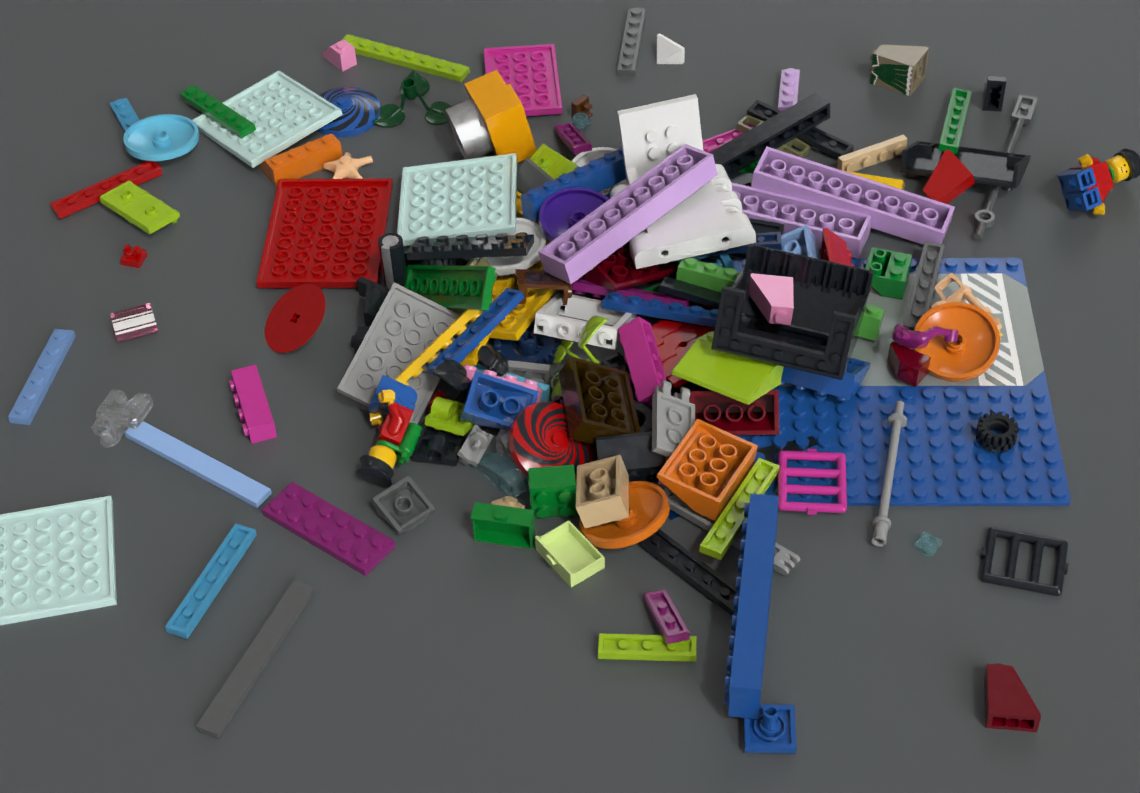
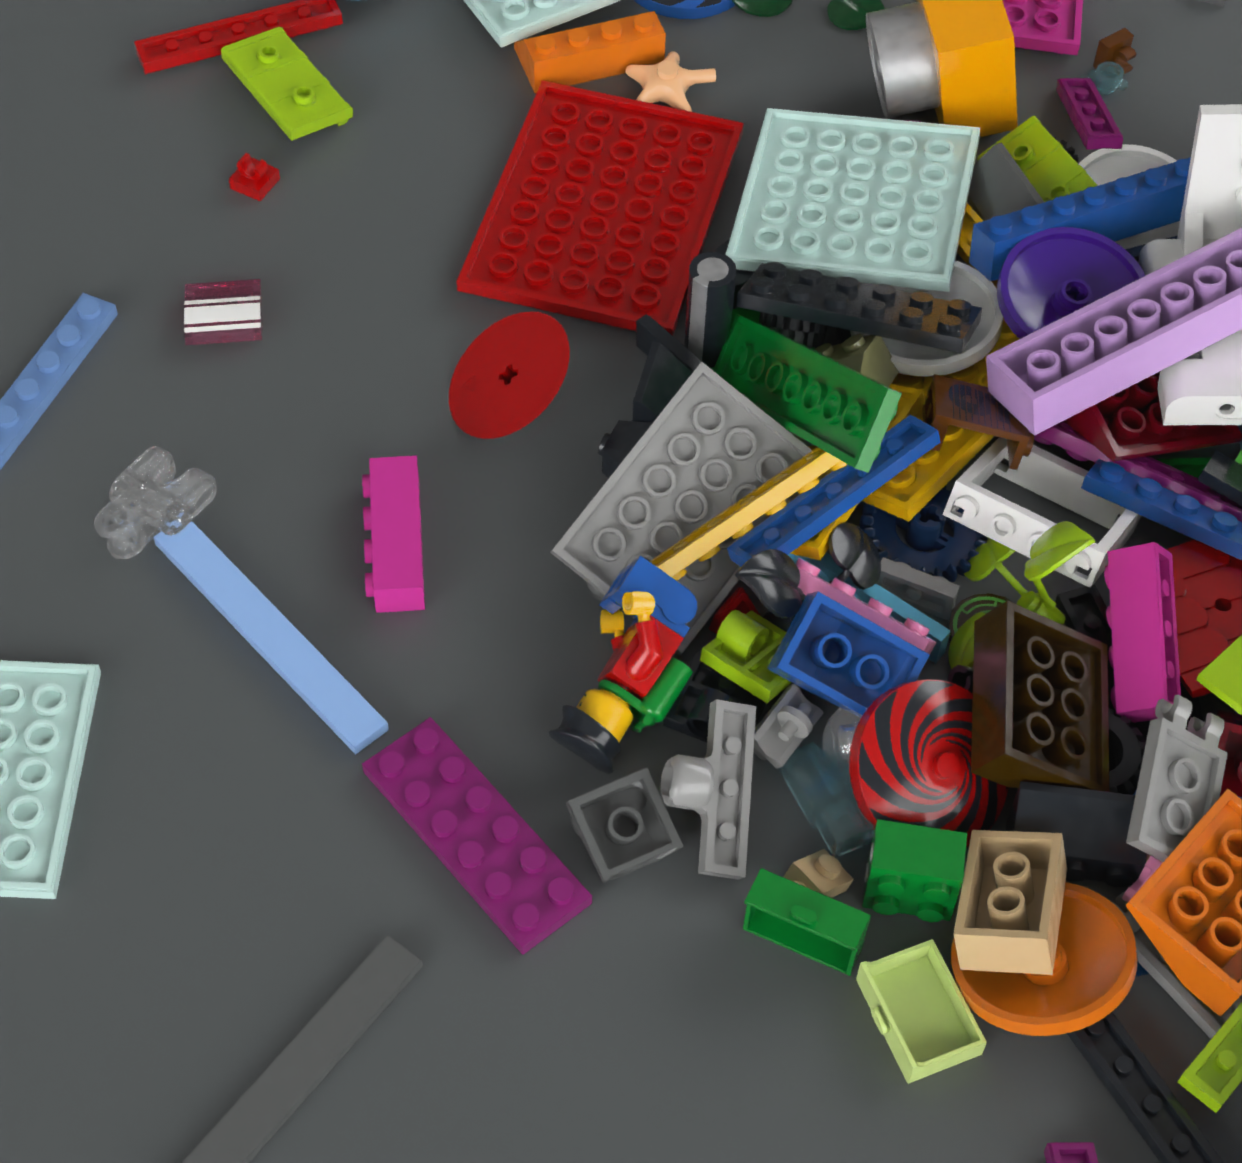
camera: 10 degrees right, 10 degrees up
(210, 581) = (234, 898): dark azure plate -> none
(447, 478) = (718, 788): none -> light grey plate

